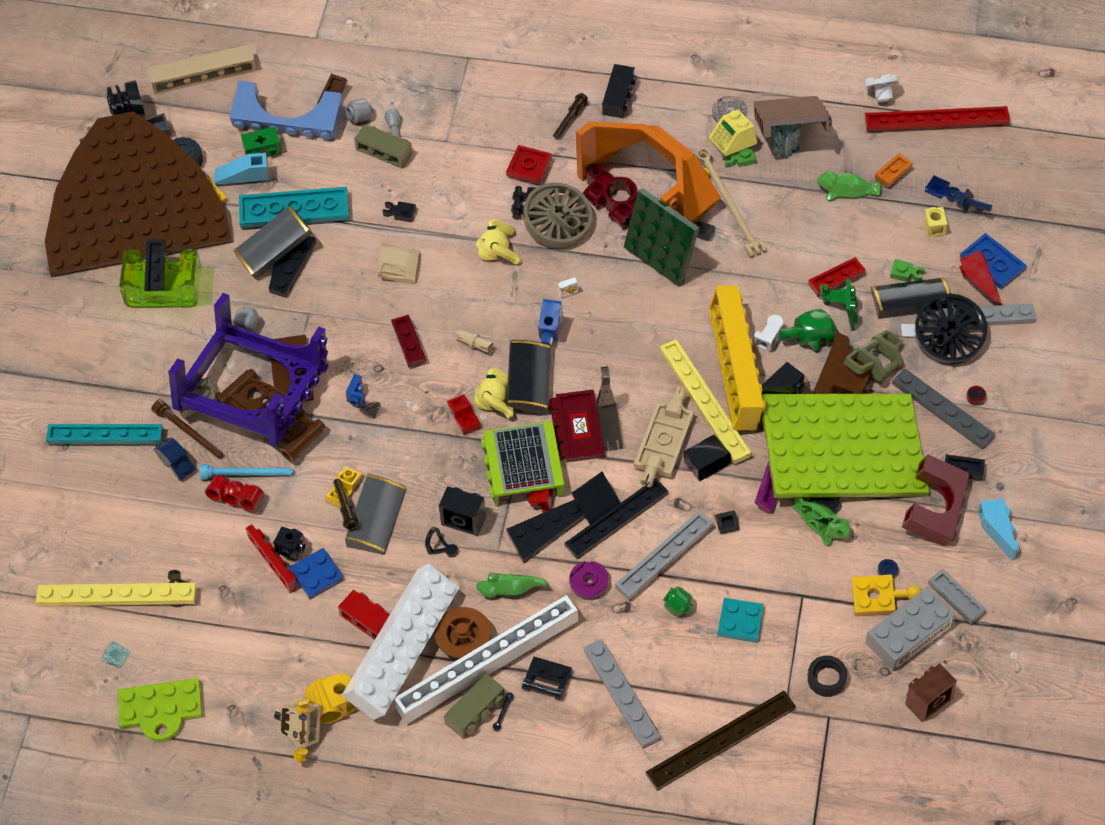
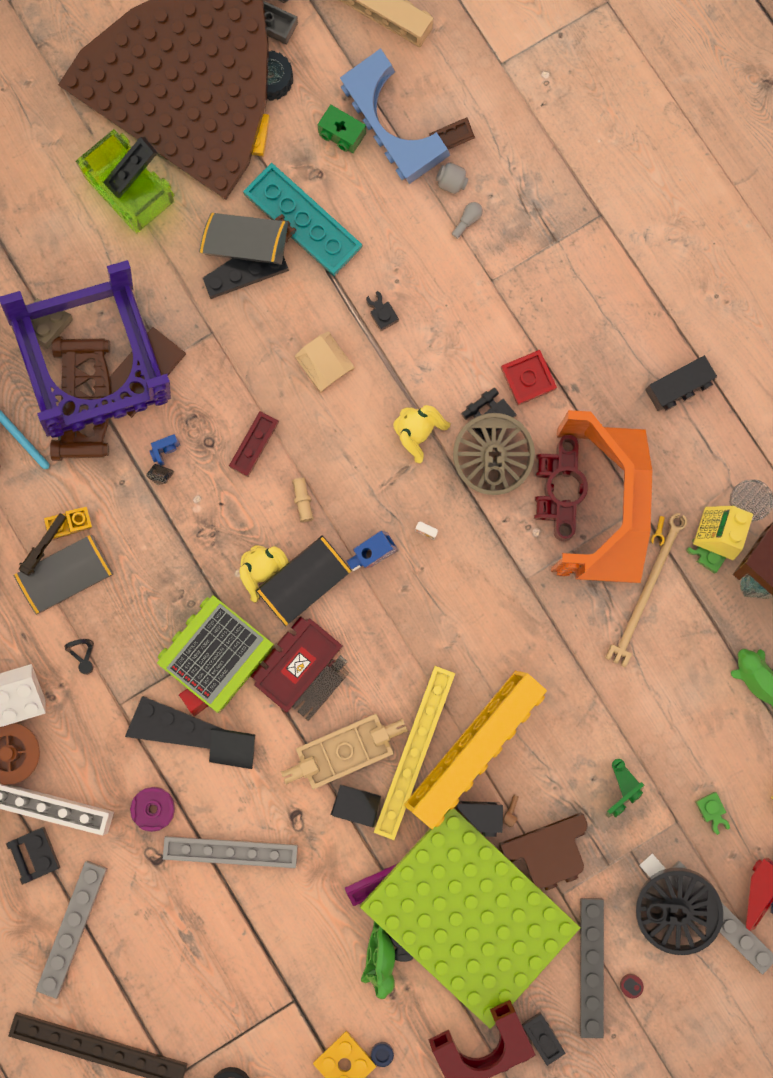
camera: 45 degrees right, 25 degrees up
(161, 408) = (11, 361): reddish brown piece -> none
(244, 169) = (300, 141): medium azure slope -> none
(246, 318) = (152, 290): light grey head -> none
(383, 146) = (434, 234): olive brick -> none
(462, 510) = (120, 649): black brick -> none
(463, 414) = (223, 557): red slope -> none
(508, 584) = (91, 747): bright green animal -> none
(580, 101) = (628, 361): dark brown pin -> none
(615, 519) = (232, 777): black tile -> none
(661, 237) = (539, 575): dark green plate -> none
(678, 601) = (193, 904): green head -> none
(705, 230) = (596, 592): pearl dark grey slope -> none
(726, 521) = (311, 873): pearl dark grey slope -> none
(740, 620) = (224, 969): teal plate -> none
(770, 334) = (542, 748): white leg -> none
(811, 328) = (569, 785): green piece -> none
(837, 275) = (650, 756): red plate -> none
(871, 361) = (574, 883): olive bar -> none
(907, 297) = (689, 839): black slope -> none

